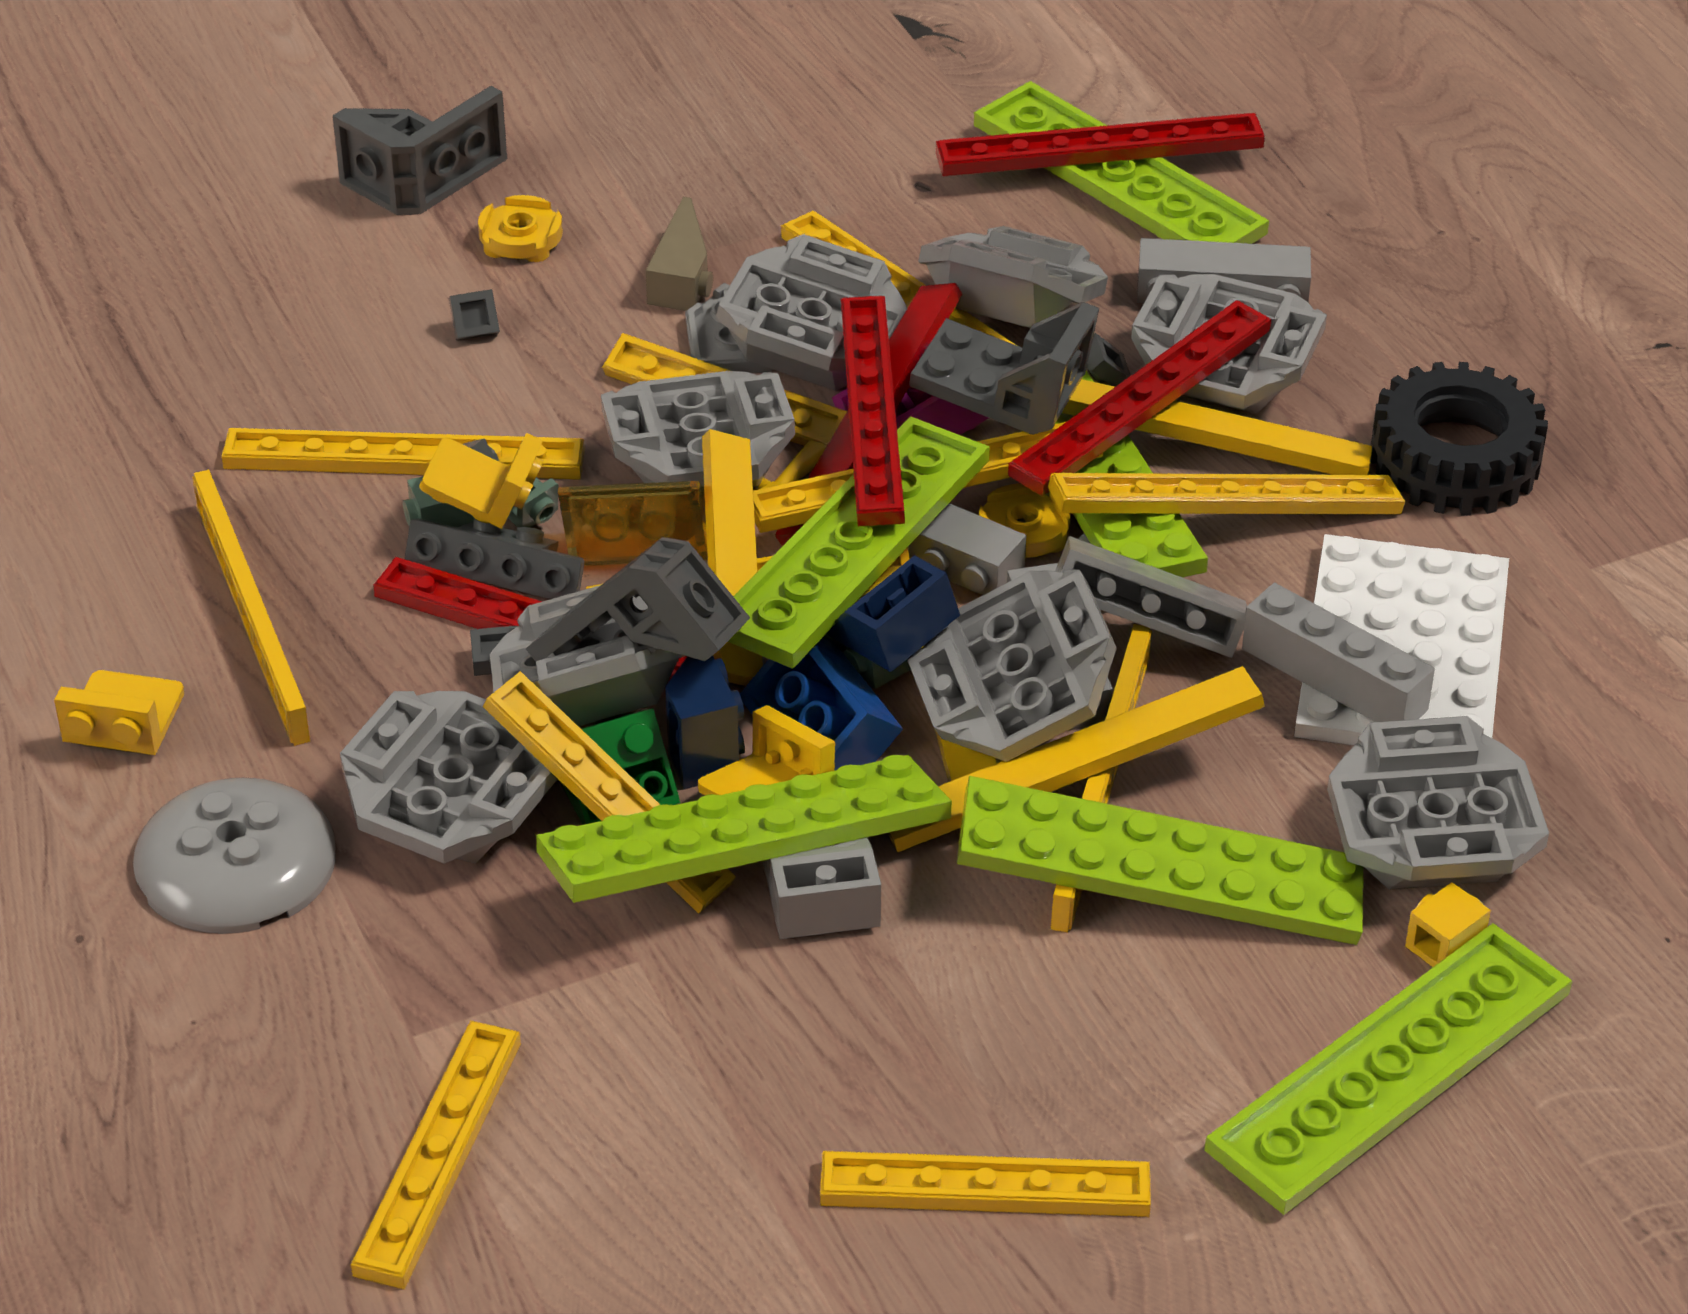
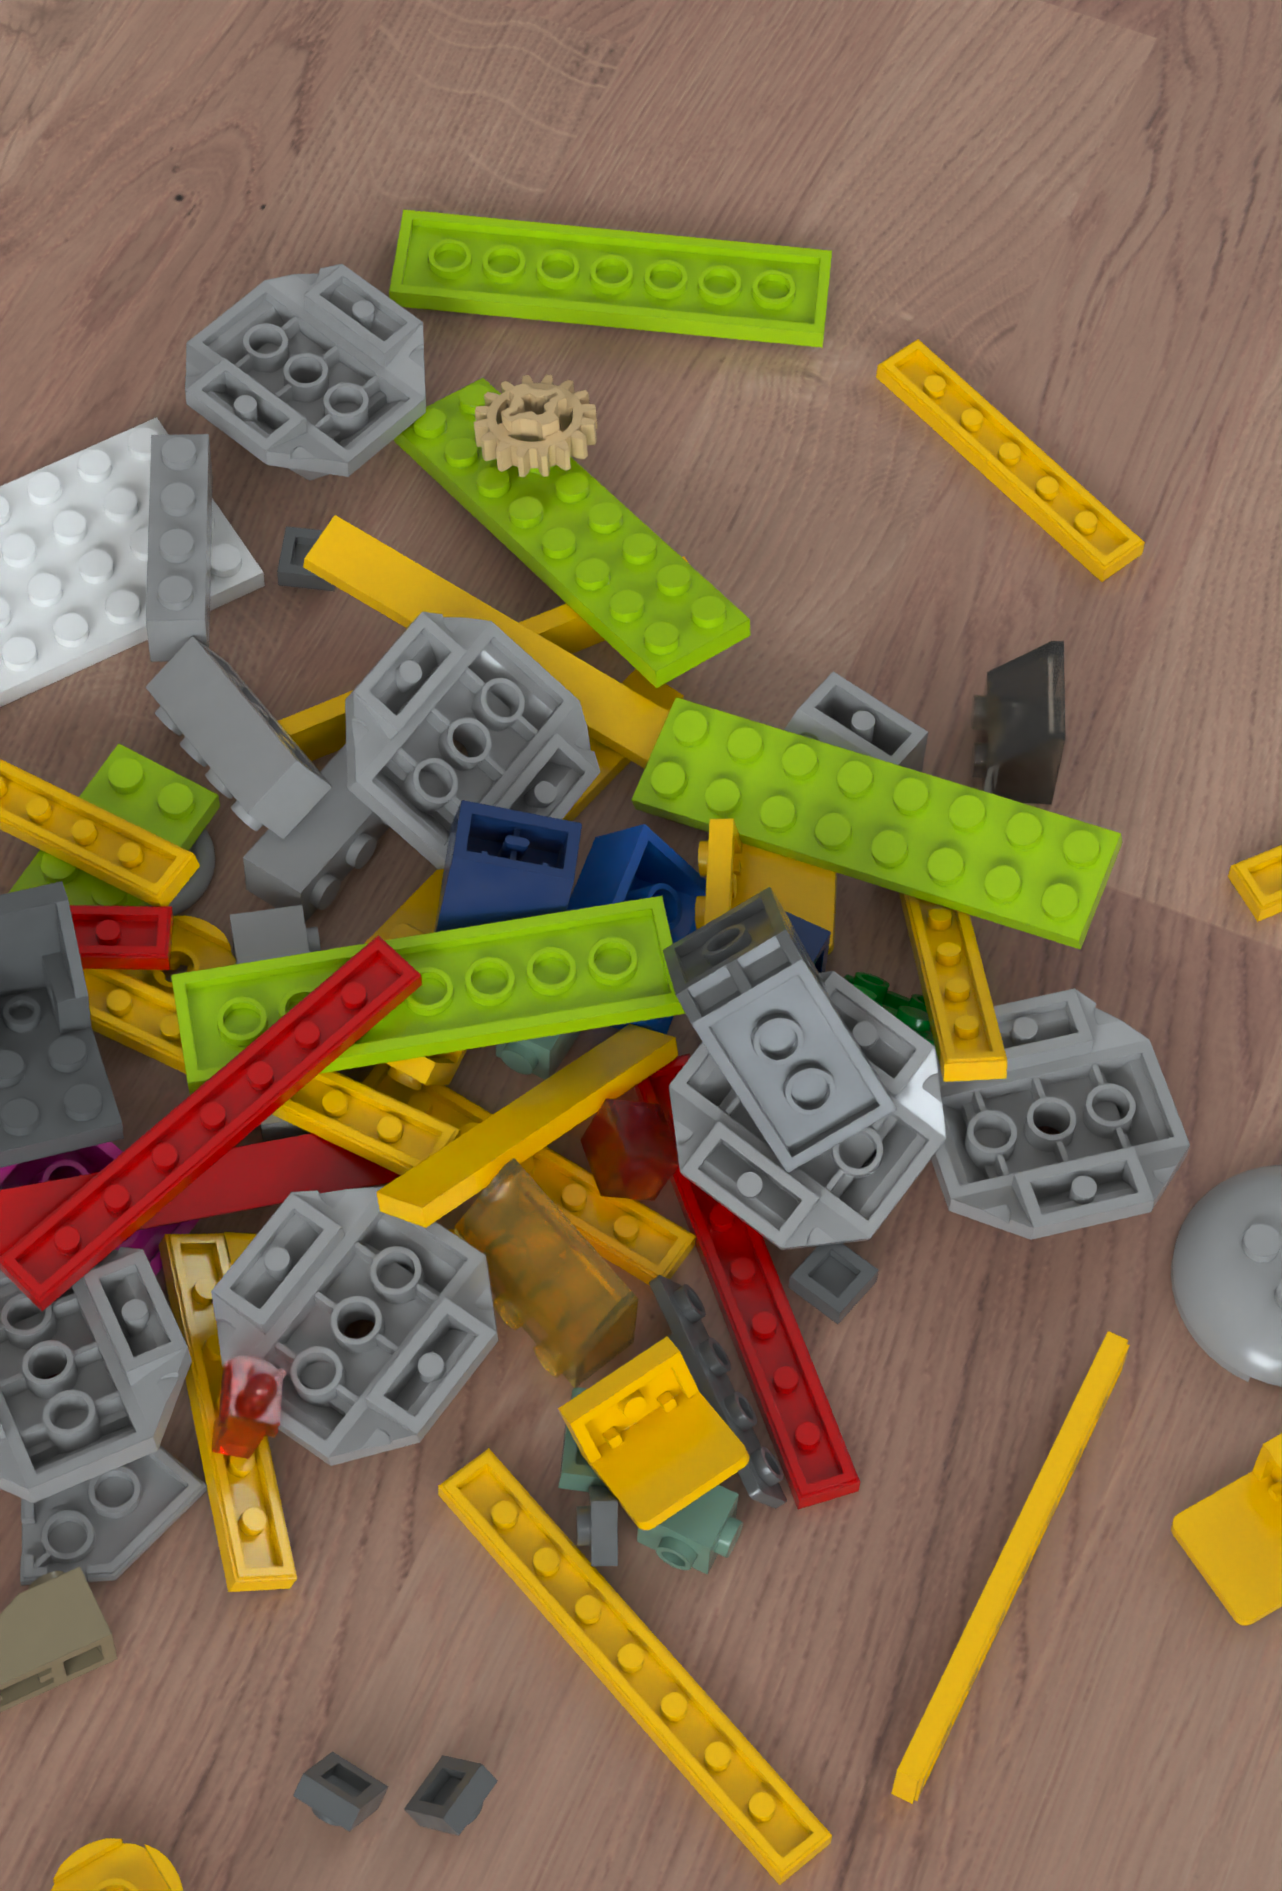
camera: 135 degrees left, 15 degrees up
(421, 346) = (451, 1795): none -> dark grey plate
(701, 359) = (247, 1405): none -> clear red piece
(735, 985) = (1021, 726): none -> clear smoke slope
(1255, 869) = (535, 425): none -> tan gear
(1284, 750) = (295, 547): none -> dark grey plate
(1445, 923) = (438, 310): yellow brick -> none

